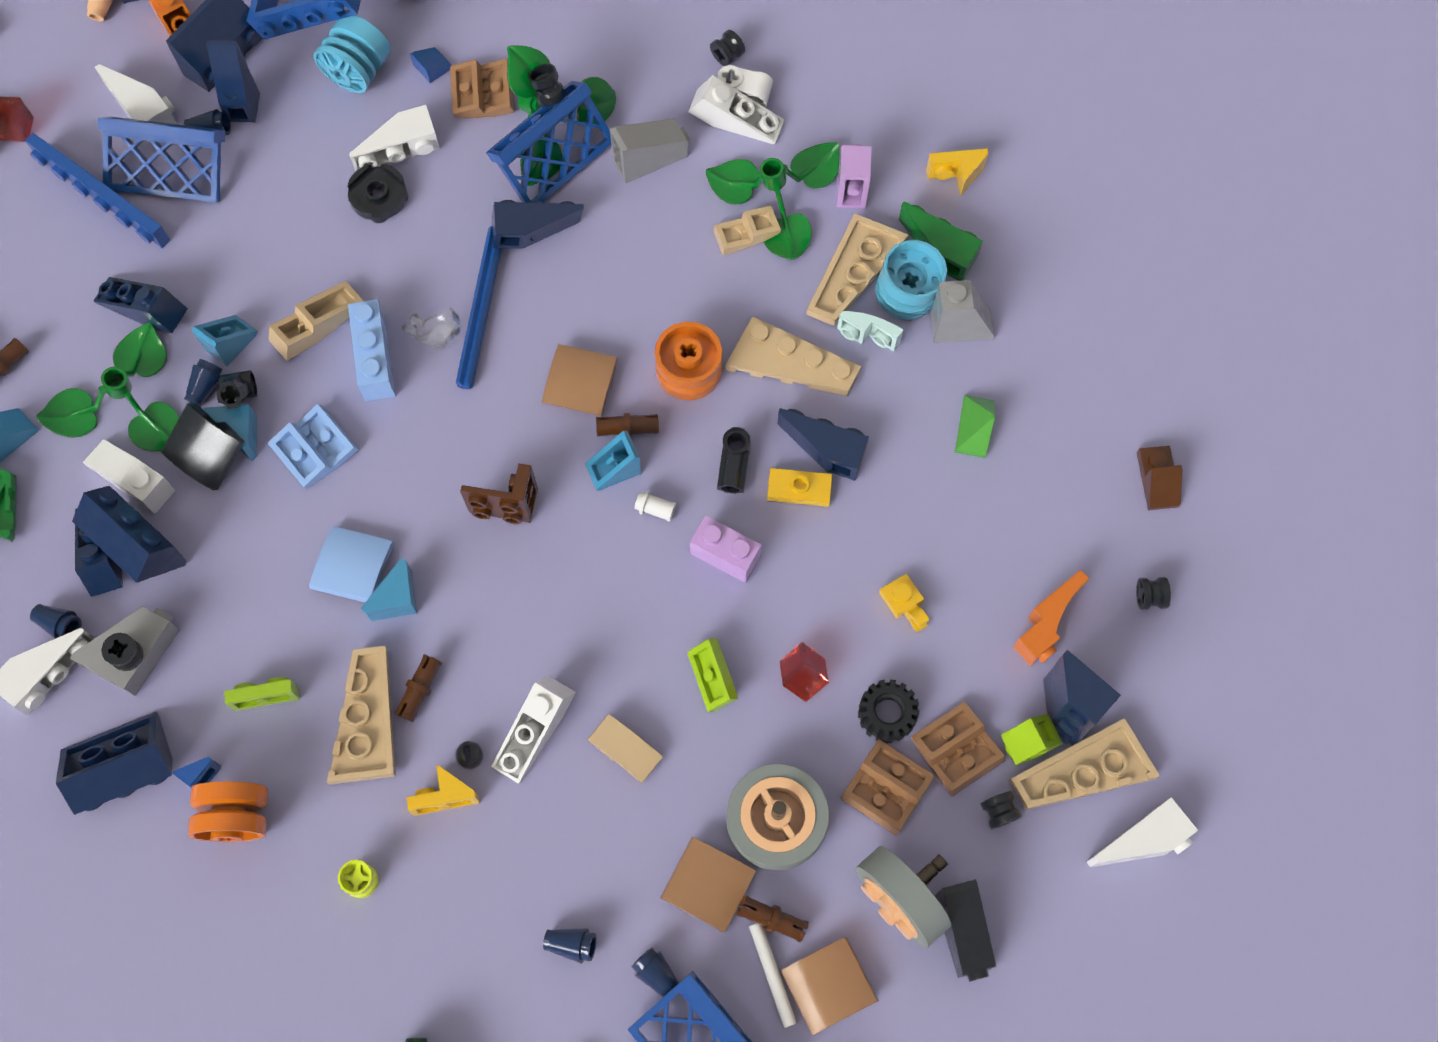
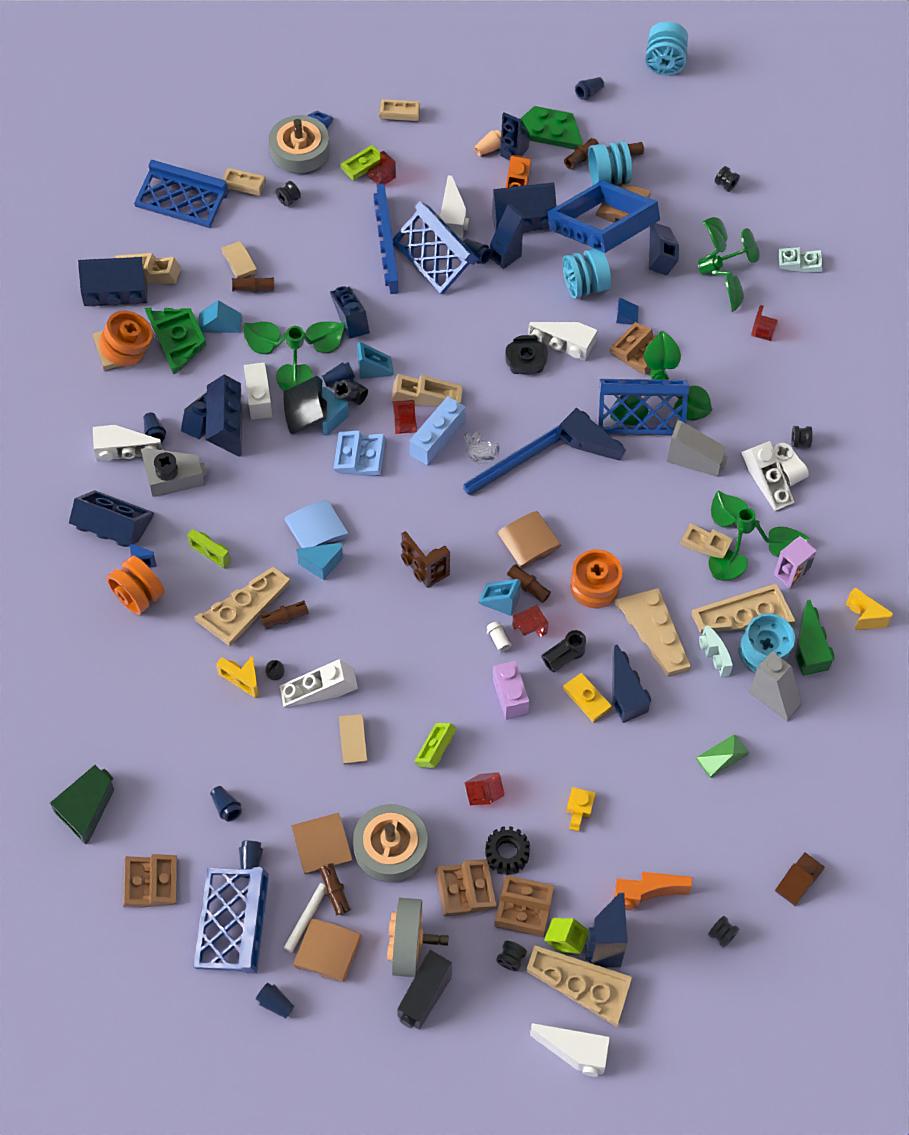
camera: 45 degrees right, 10 degrees down
(320, 366) = (404, 416): none -> clear red panel
(351, 876) = (163, 671): neon yellow wheel -> none
(548, 89) = (665, 369): black wheel -> none
(673, 462) = (531, 621): none -> clear red panel

